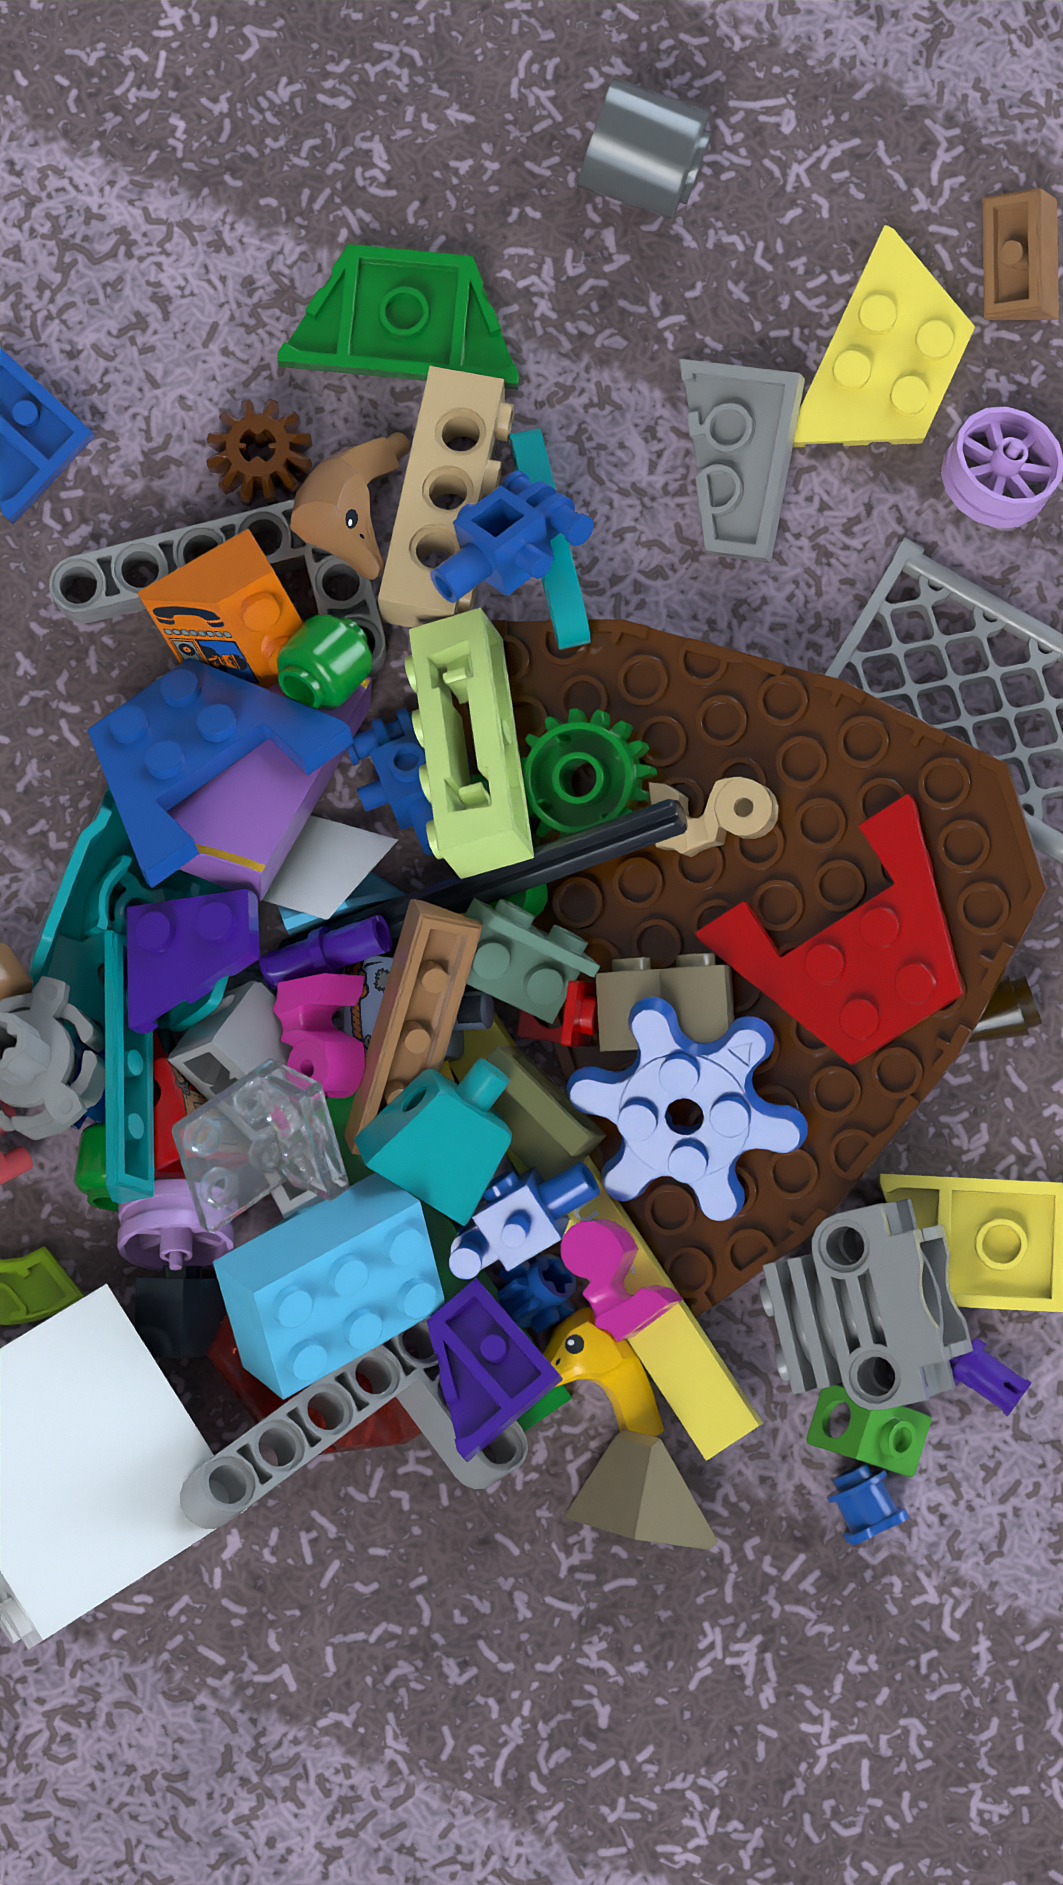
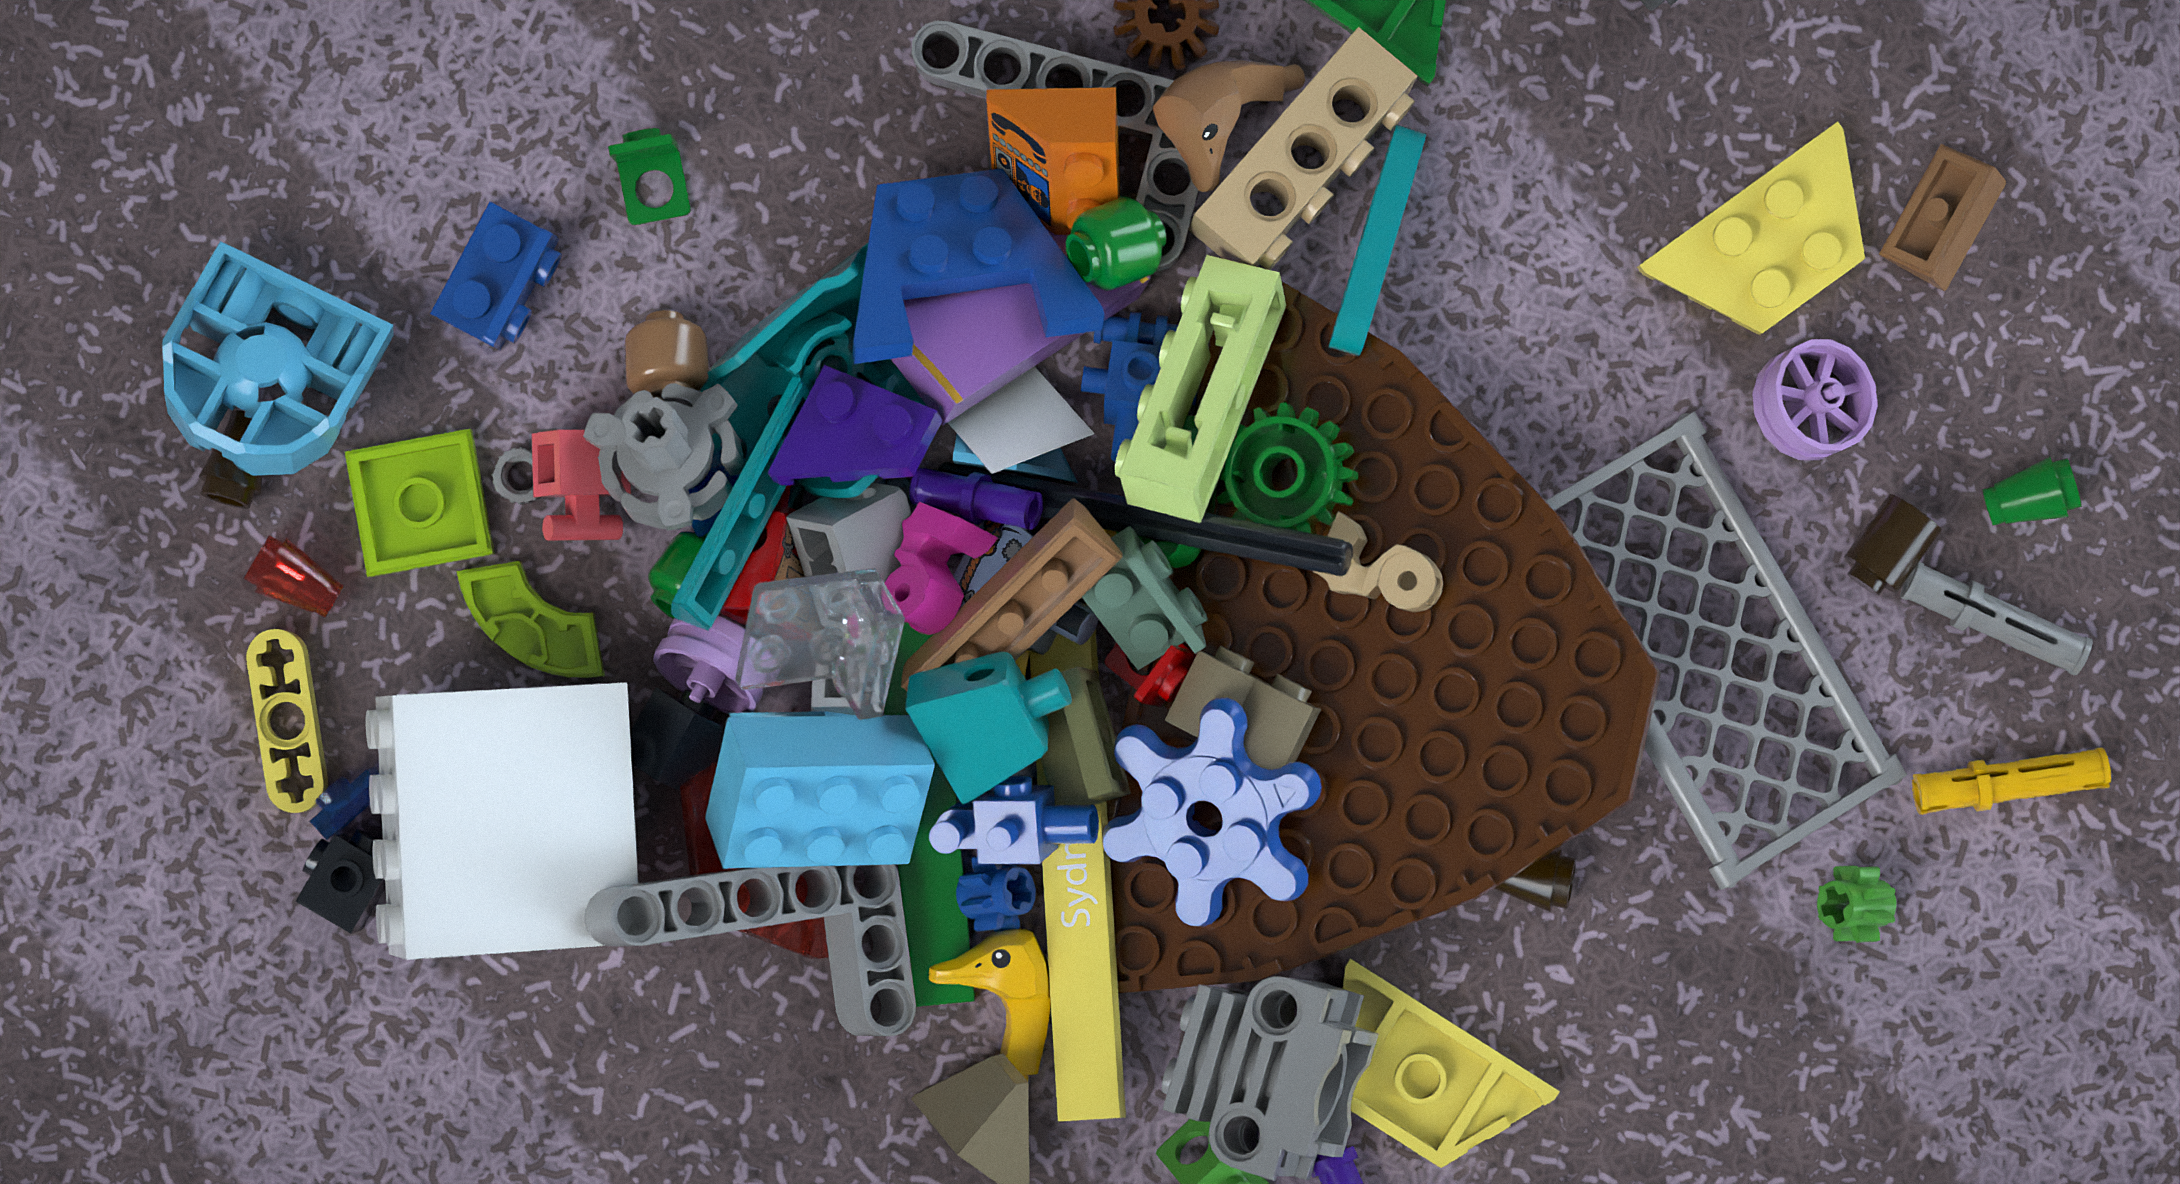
camera: 35 degrees right, 5 degrees up
(485, 1367) = (913, 937): dark purple wing -> none
(509, 537) = (1338, 226): blue piece -> none
(604, 1256) = (1068, 896): dark pink leg -> none
(742, 449) = (1597, 250): light grey wing -> none
(867, 971) = (1436, 783): red wing -> none

